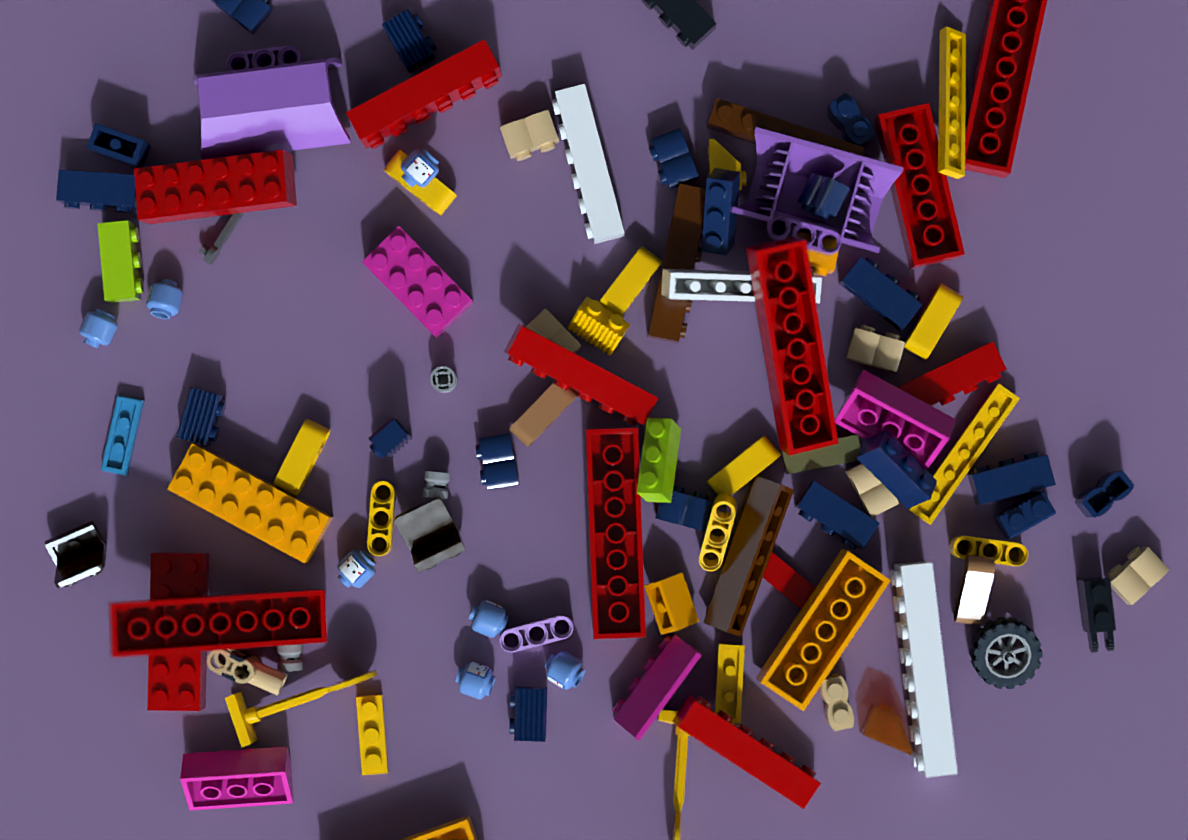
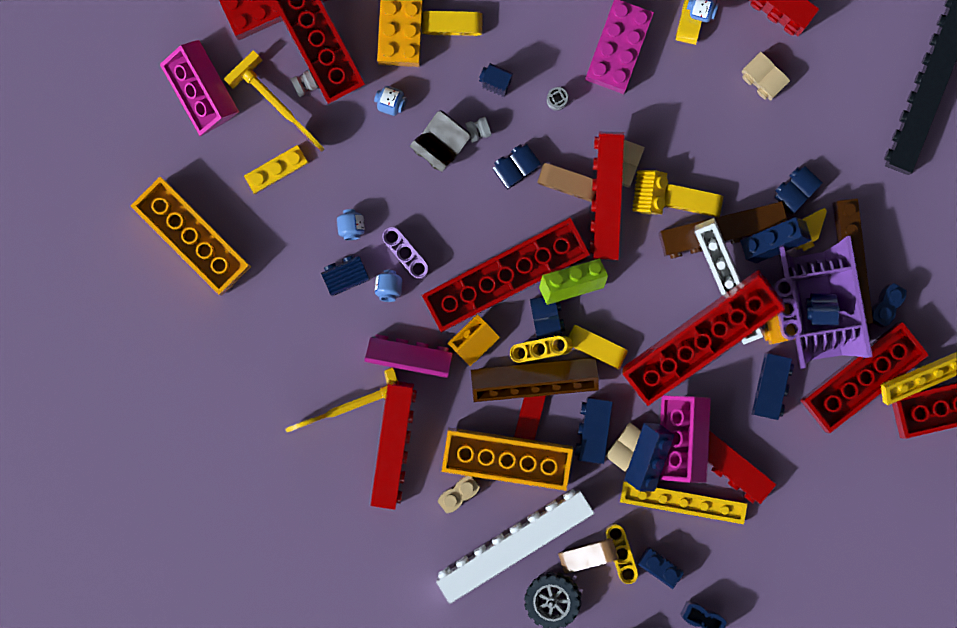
camera: 60 degrees right, 0 degrees up
(258, 675) = (280, 66): tan connector -> none
(376, 530) = (443, 94): yellow beam -> none
(488, 618) = (399, 213): medium blue head -> none
(589, 164) = (765, 129): white brick -> none
(730, 680) = (437, 409): yellow plate -> none
(827, 456) = (631, 399): olive tile -> none
(874, 349) = (728, 402): tan brick -> none
(886, 727) = (457, 539): clear orange slope -> none
(933, 321) = (769, 434): yellow beam -> none
(1011, 478) = (682, 545): dark blue brick -> none

